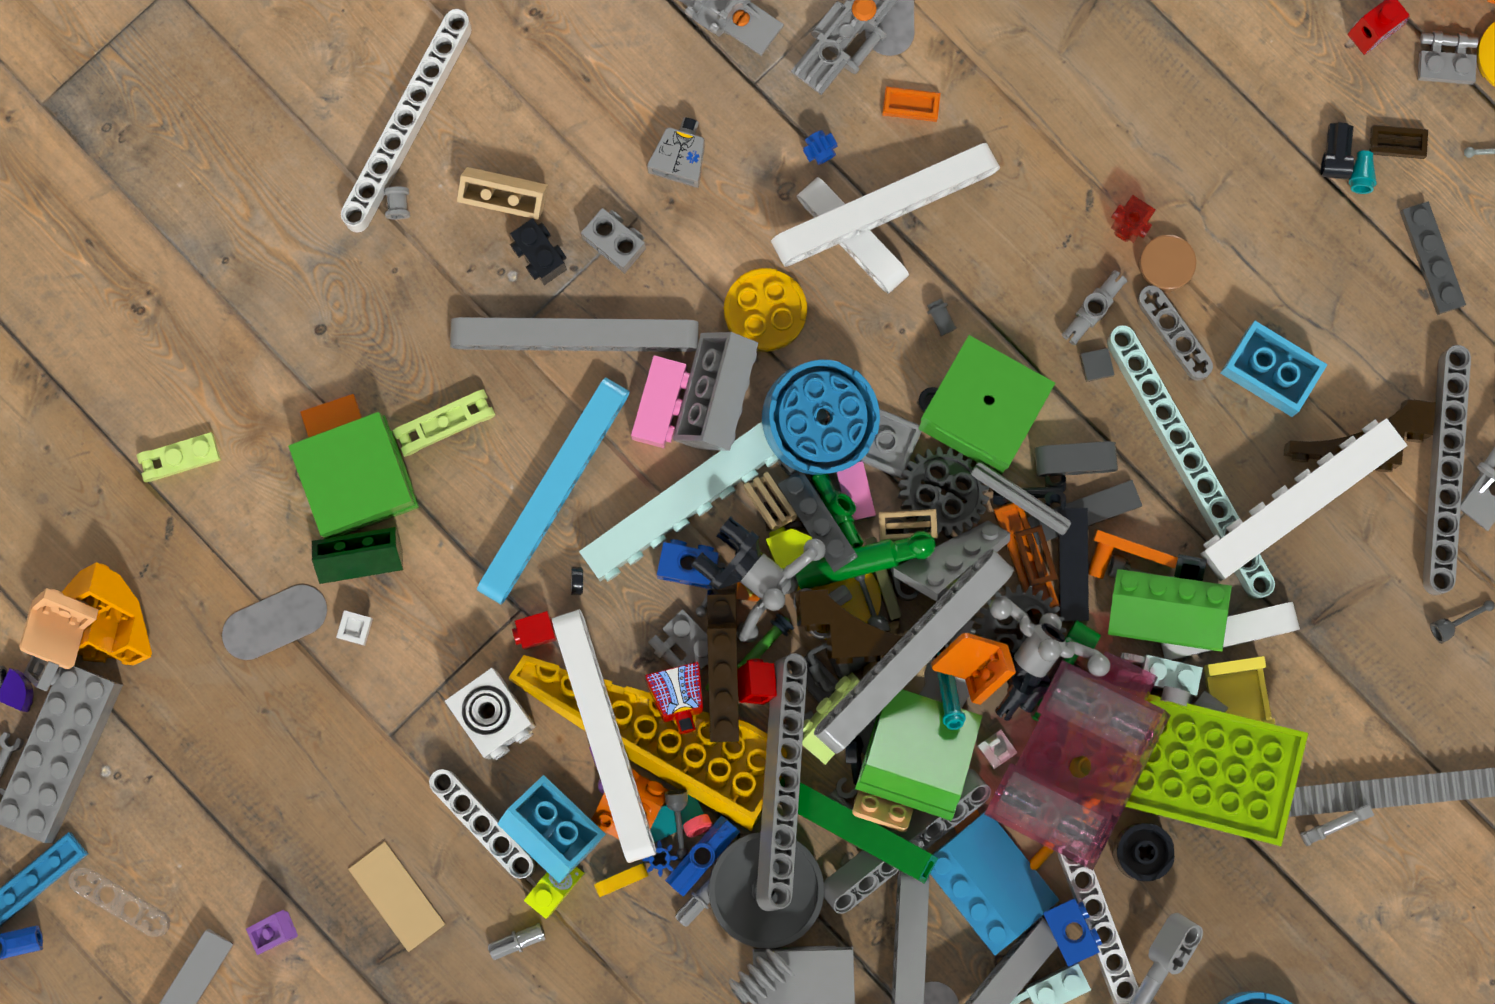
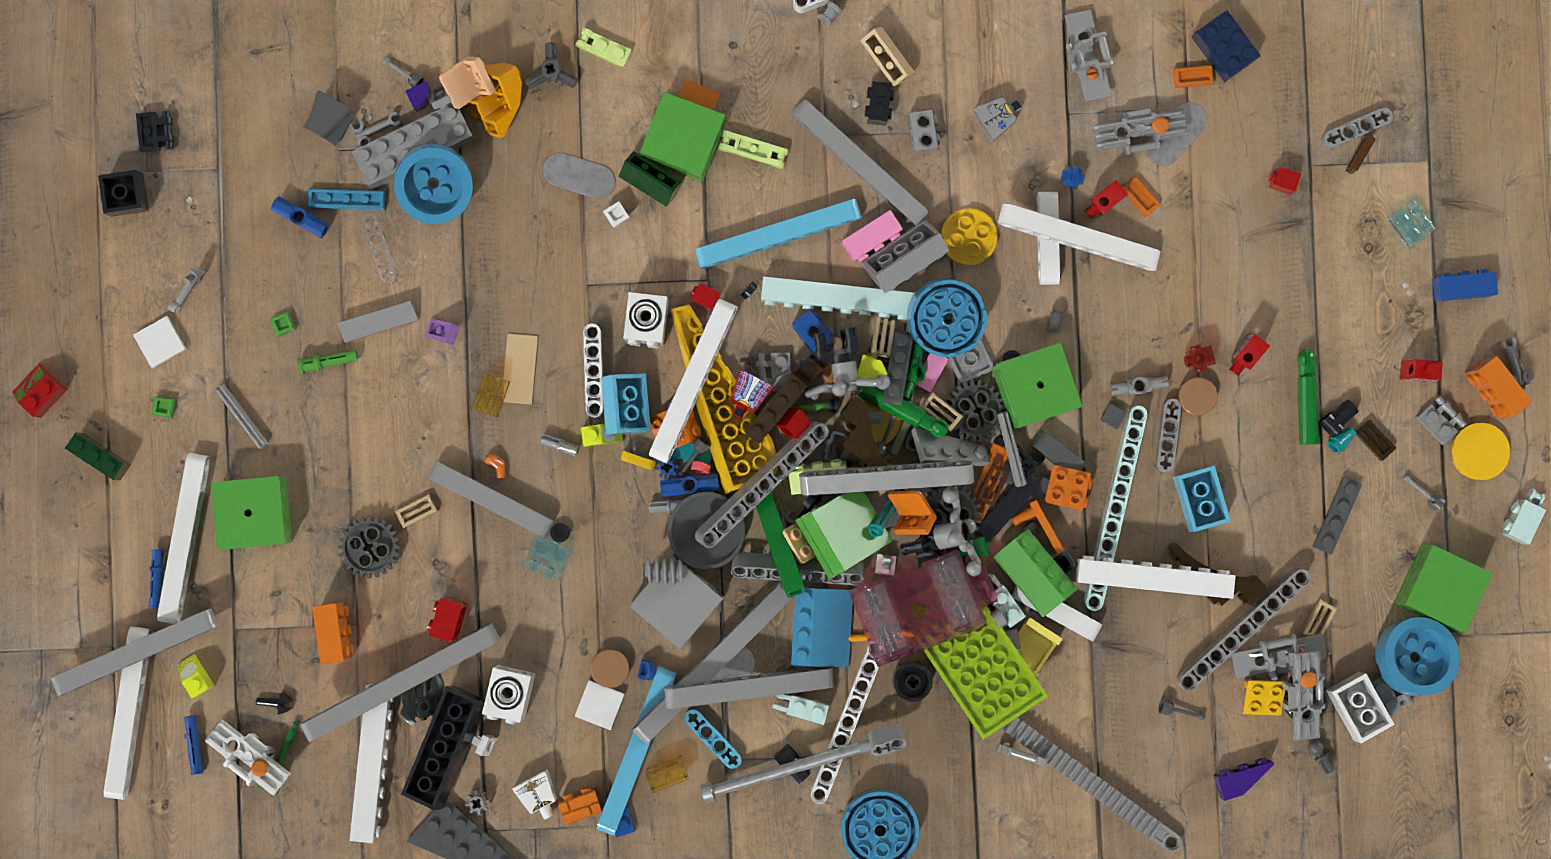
camera: 35 degrees right, 5 degrees up
(124, 804) = (429, 203): none -> dark azure brick
(131, 526) = (549, 62): none -> dark grey bush
(389, 954) = (490, 394): none -> clear yellow hinge
(879, 127) = (1113, 194): none -> red torso
(1078, 949) = (832, 697): blue brick -> none
(1120, 485) = (1068, 488): none -> orange bracket
(1180, 156) = (1254, 347): none -> red torso
(1286, 160) = (1307, 398): none -> green piece

